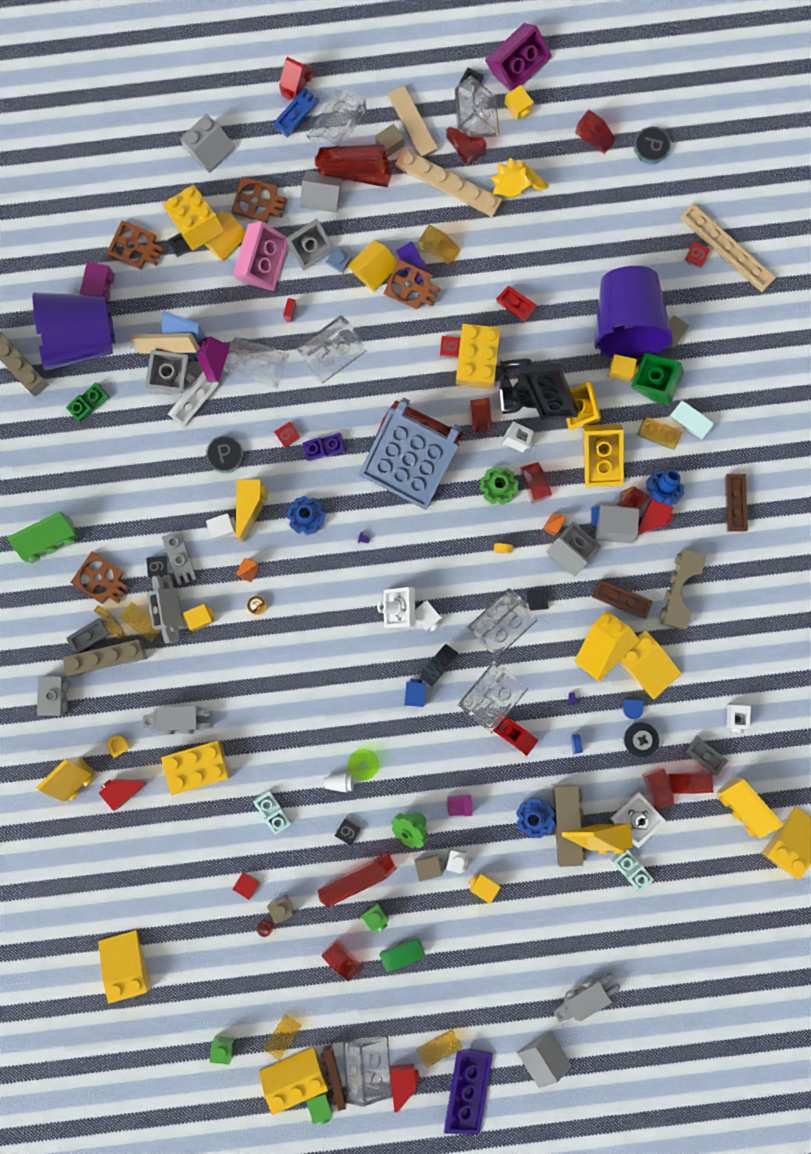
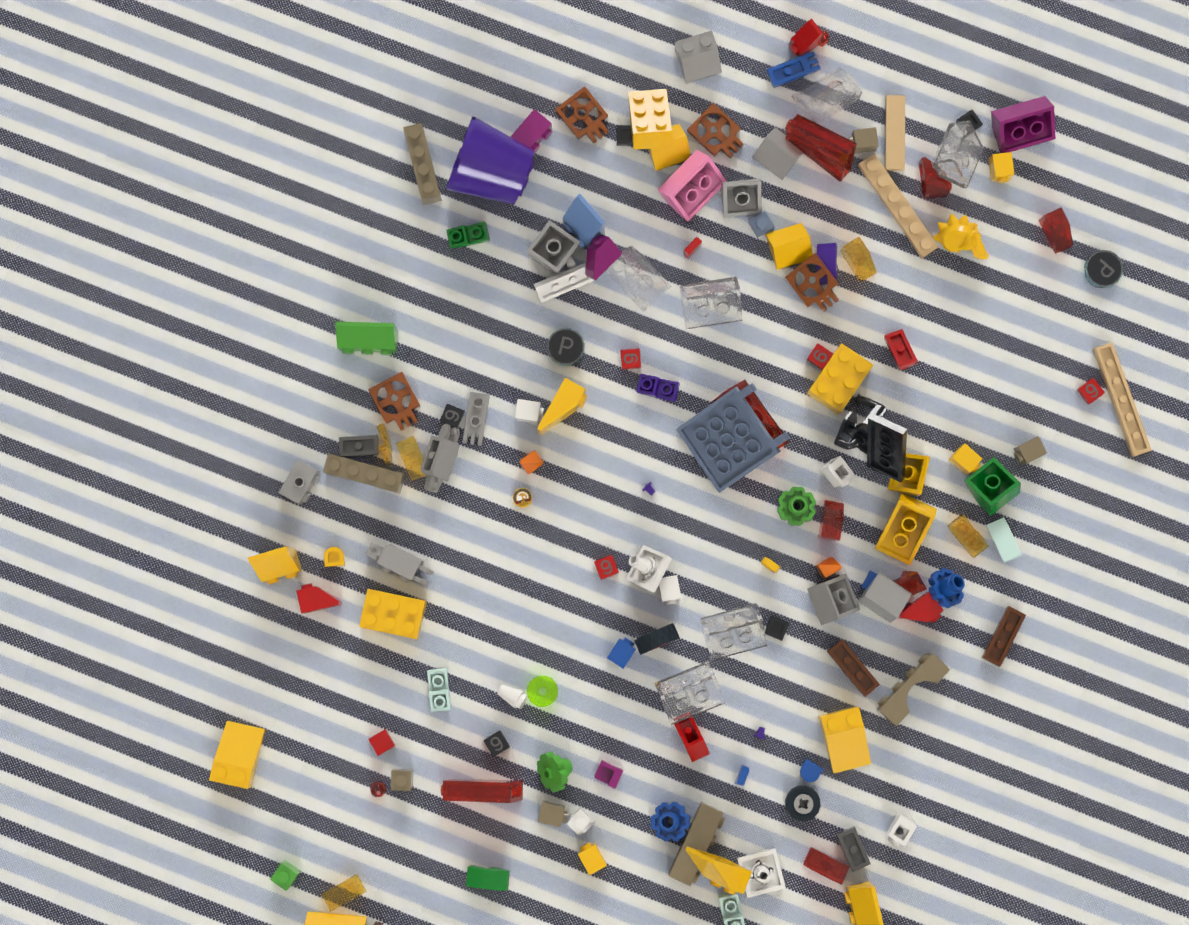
camera: 25 degrees right, 0 degrees up
(165, 342) = (568, 222): tan tile -> none
(199, 617) = (466, 481): yellow brick -> none
(302, 506) = (612, 431): blue plant -> none
(341, 960) = (431, 854): clear red slope -> none
(362, 626) = (606, 567): none -> red tile
(375, 917) = (481, 832): bright green brick -> none
(480, 414) = (813, 434): clear red slope -> none
(605, 645) = (815, 701): yellow slope -> none
(631, 313) = (999, 415): dark purple cone -> none
(659, 788) = (795, 855): clear red slope -> none

